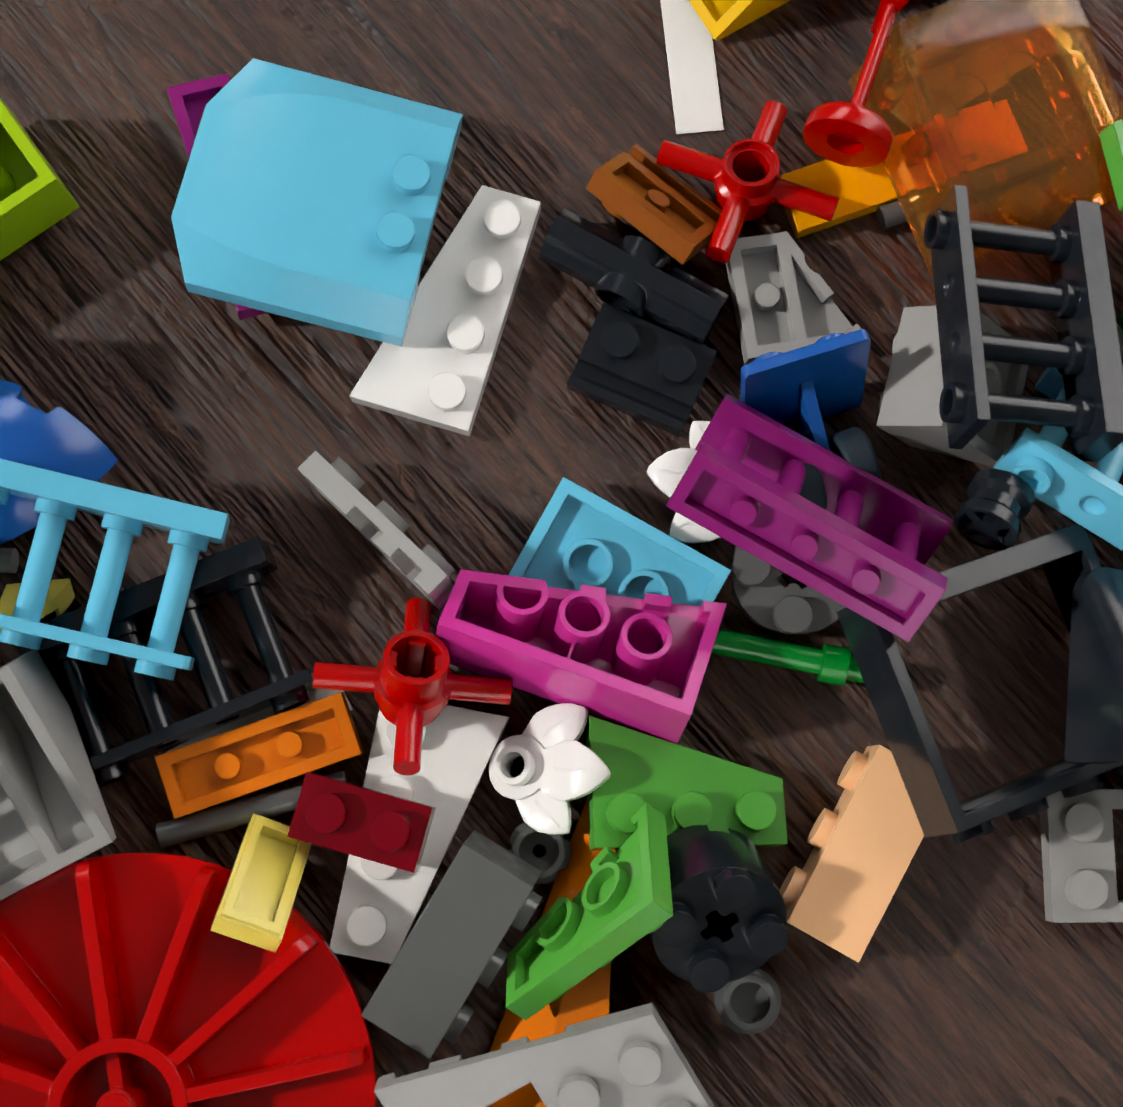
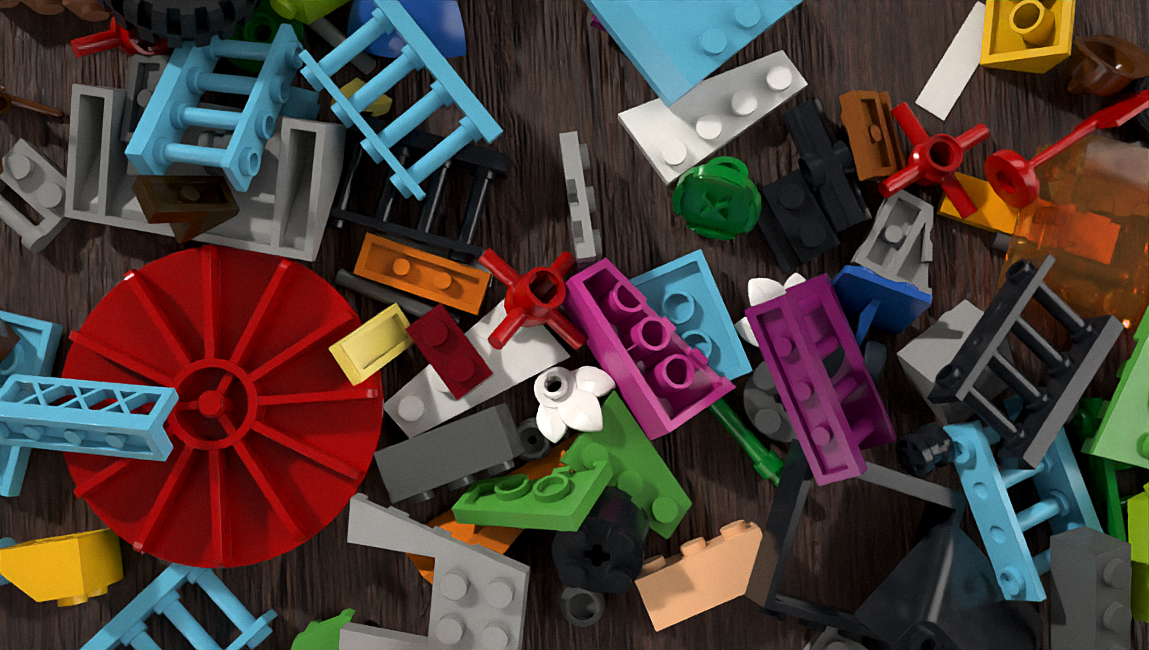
camera: 40 degrees right, 5 degrees up
(539, 405) = (718, 199): none -> green tile

